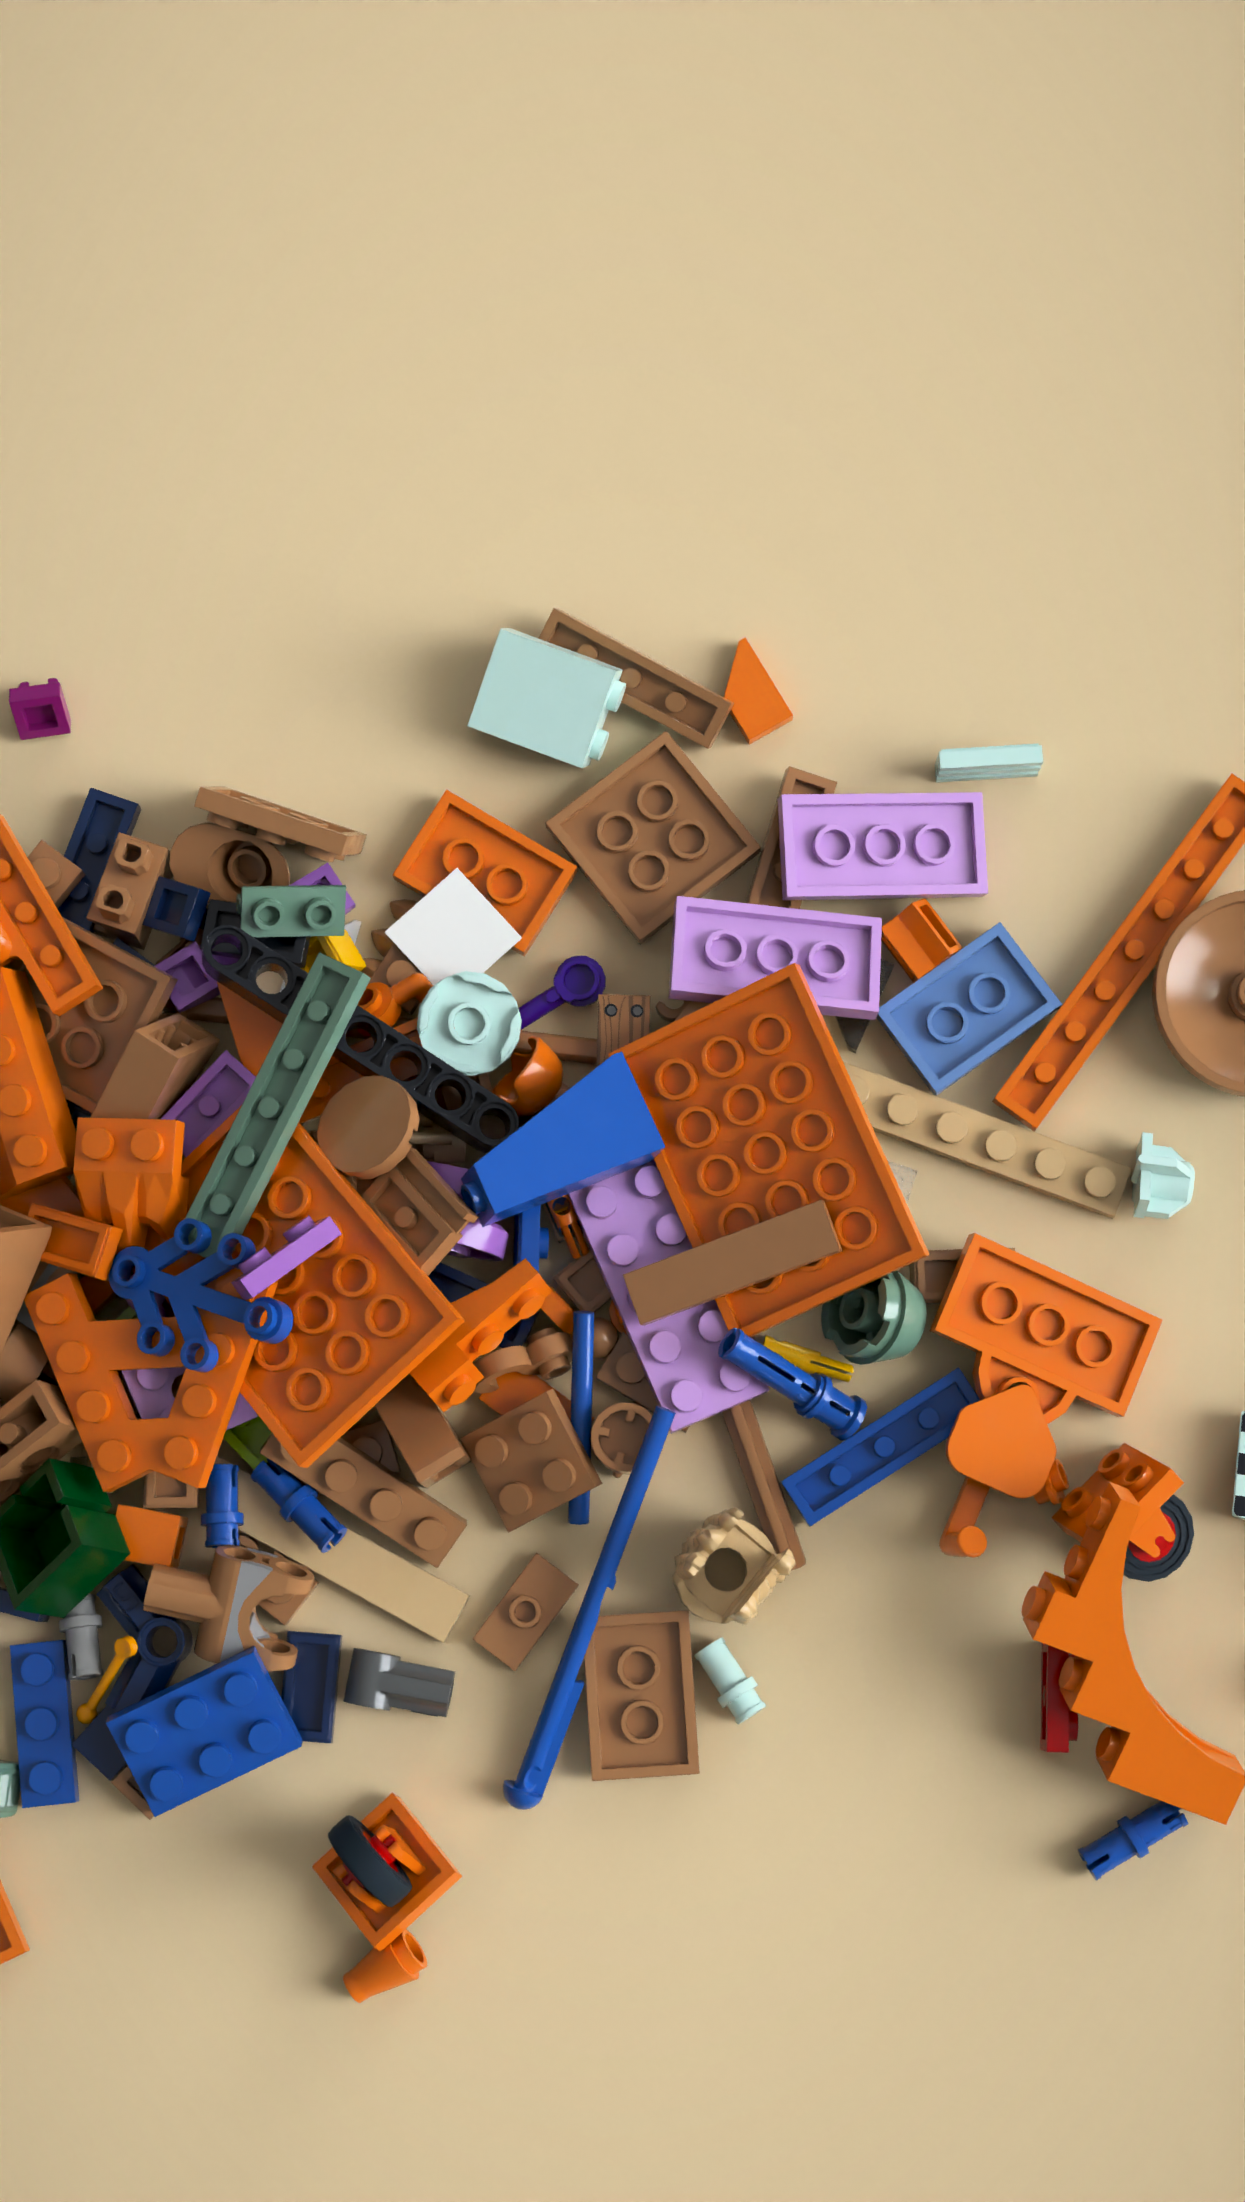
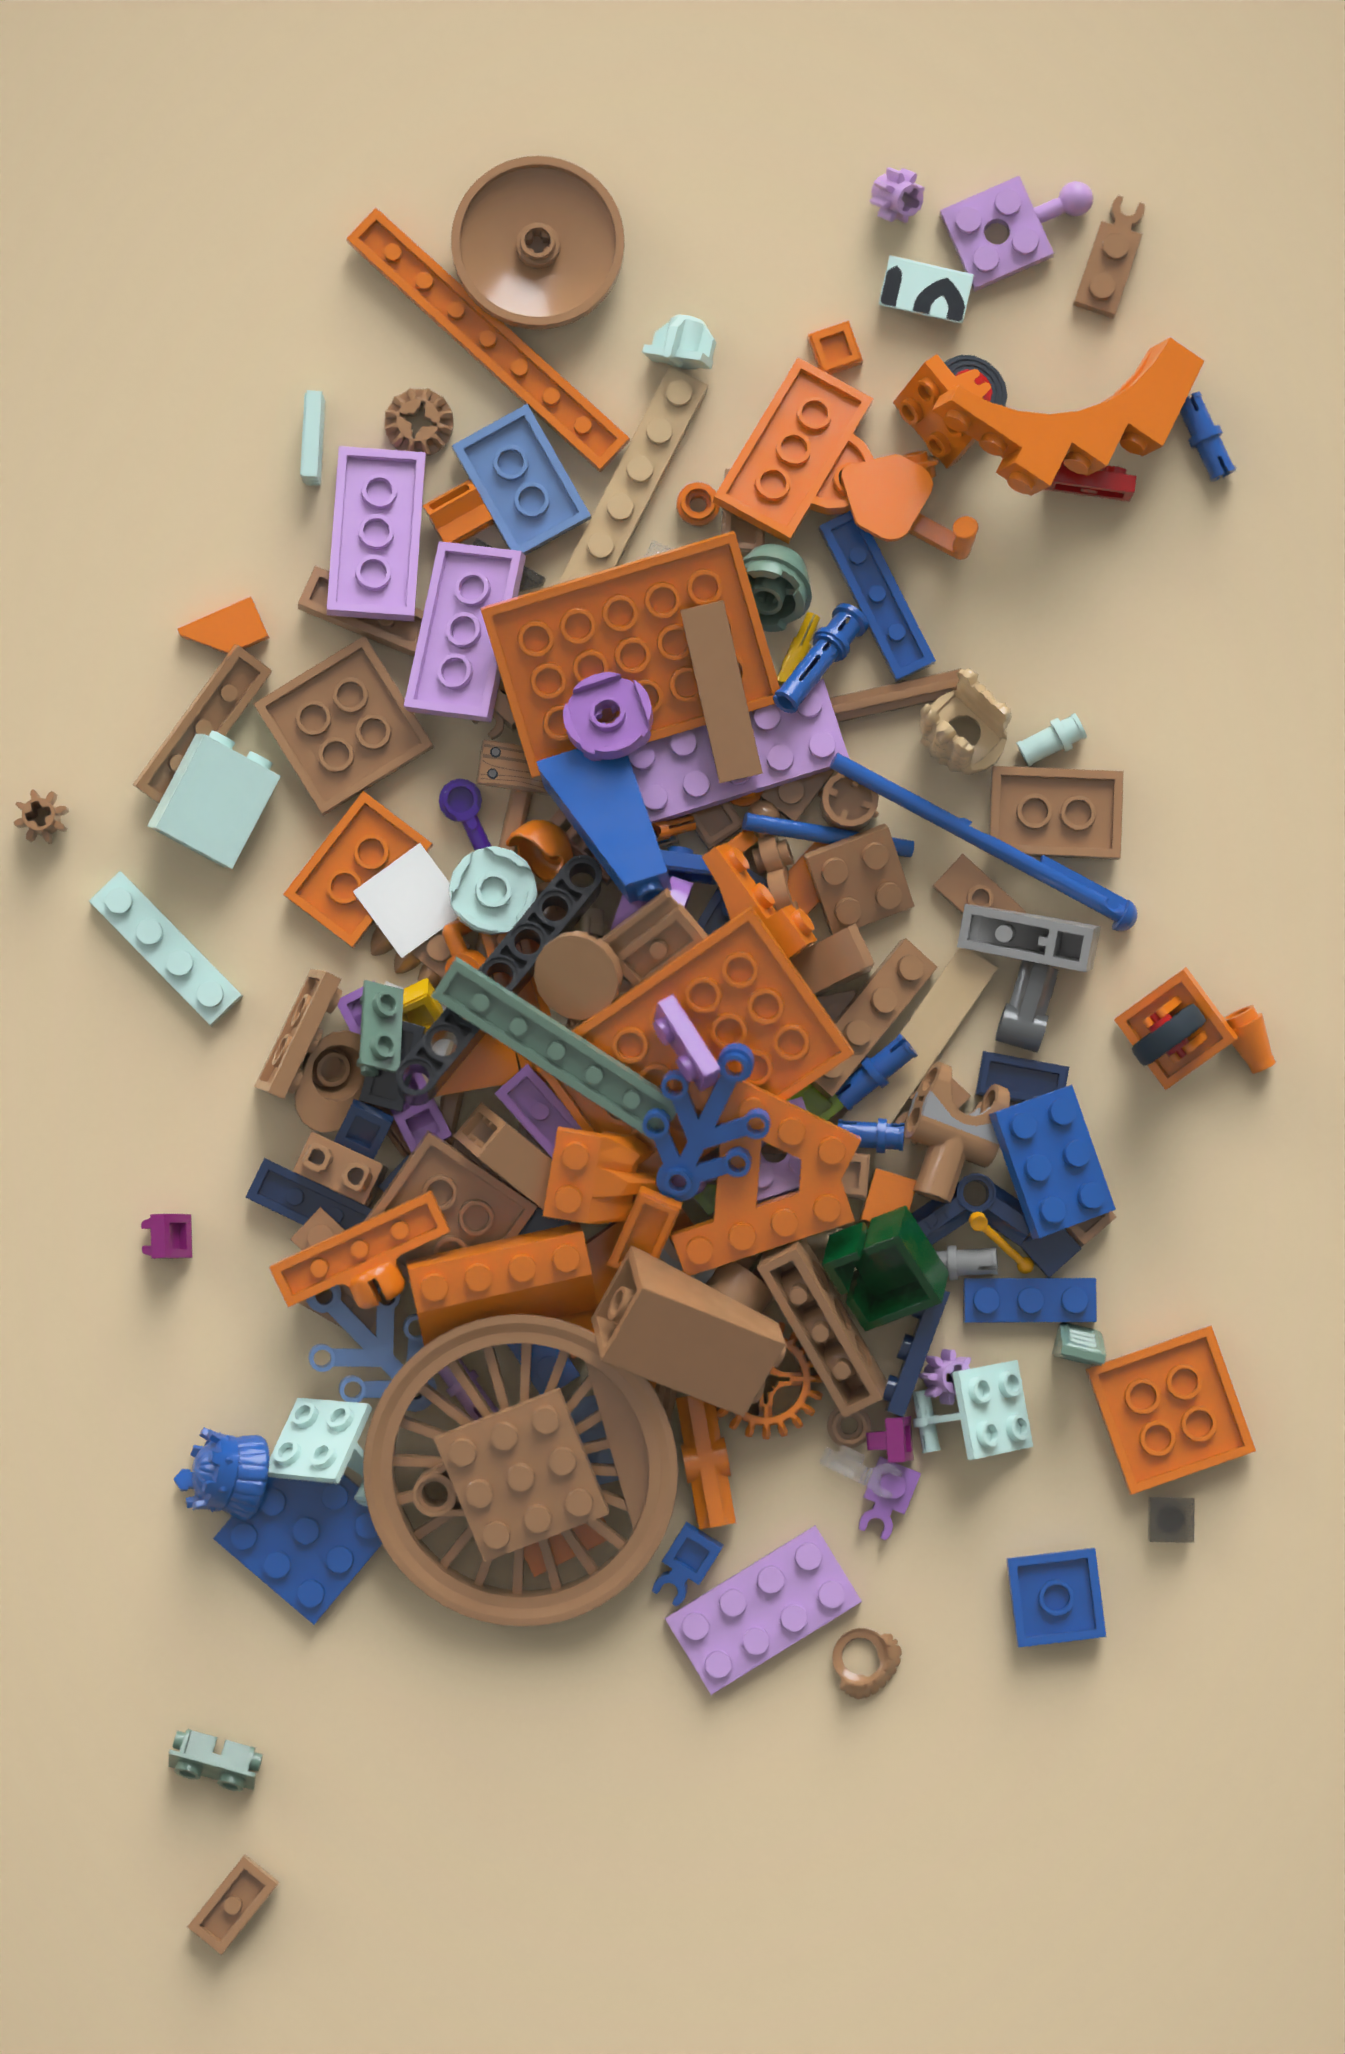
camera: 90 degrees left, 5 degrees up
(373, 669) = (165, 948): none -> light aqua plate
(480, 1678) = (1029, 937): none -> light grey slope
(511, 497) = (52, 821): none -> medium nougat gear
(672, 1156) = (614, 739): none -> medium lavender plate
(973, 1205) = (694, 491): none -> orange plate
(1005, 896) = (428, 439): none -> medium nougat gear
(1180, 1366) = (835, 348): none -> orange tile

